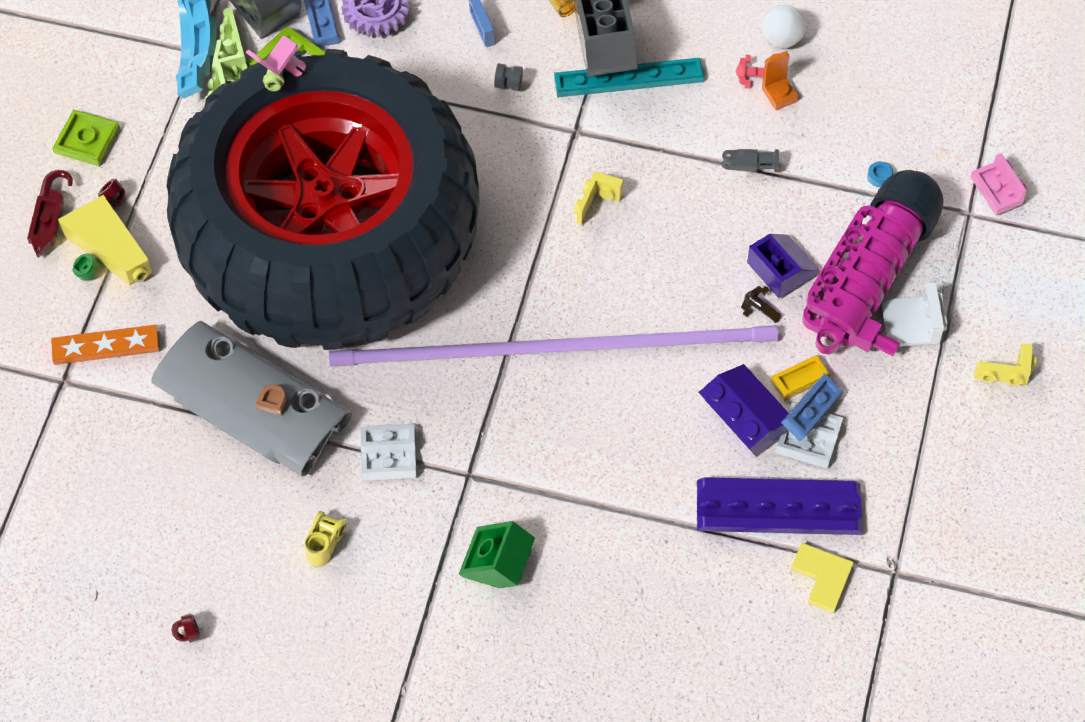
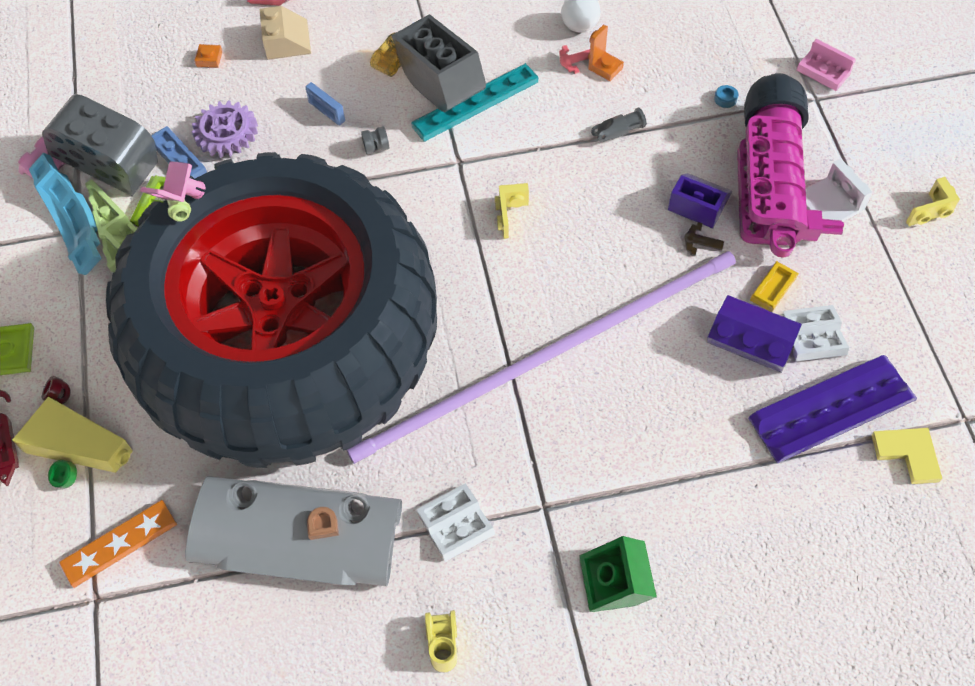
camera: 25 degrees left, 0 degrees up
(812, 407) = (807, 307): medium blue tile -> none

